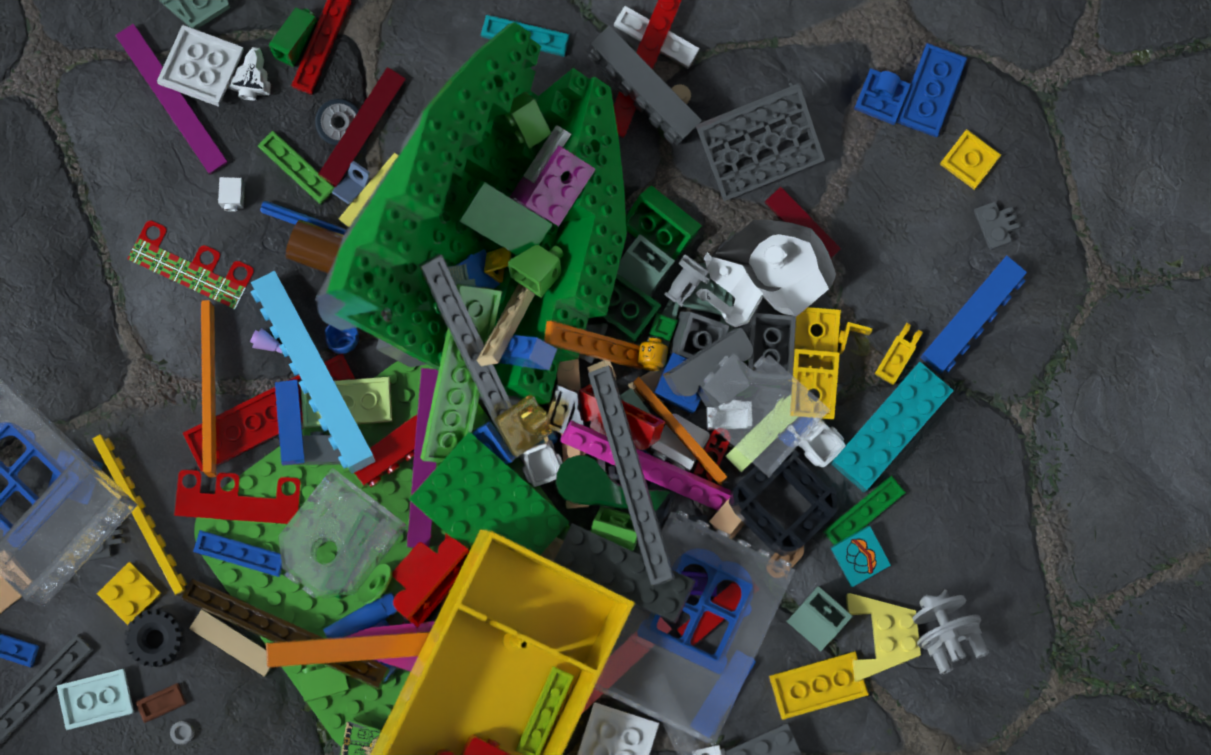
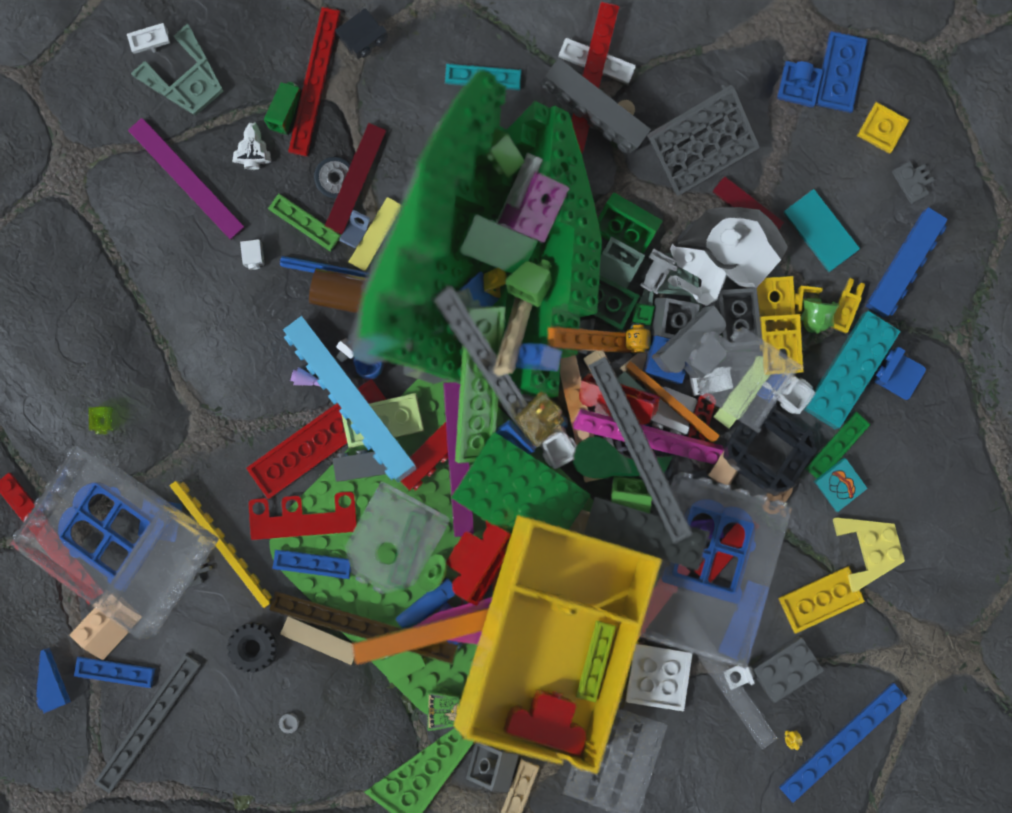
camera: 10 degrees left, 5 degrees up
(22, 348) = (95, 415): none -> clear neon green brick
(95, 699) = (210, 706): light aqua plate -> none
(129, 593) = (223, 612): yellow plate -> none
(161, 703) = (267, 700): copper tile -> none
(192, 275) = (228, 329): piece -> none
(200, 65) = (206, 145): white plate -> none
(208, 388) = (262, 427): orange tile -> none
(289, 422) = (337, 446): blue tile -> none
(316, 320) = (345, 350): none -> white tile
(565, 407) = (572, 398): wing -> none
(819, 618) = (814, 543): sand green slope -> none
(862, 358) = (818, 315): none -> bright green helmet
(882, 264) = (821, 230): none -> teal tile
(947, 440) = (899, 374): none -> blue bracket
(949, 632) = (929, 541): light grey piece -> none

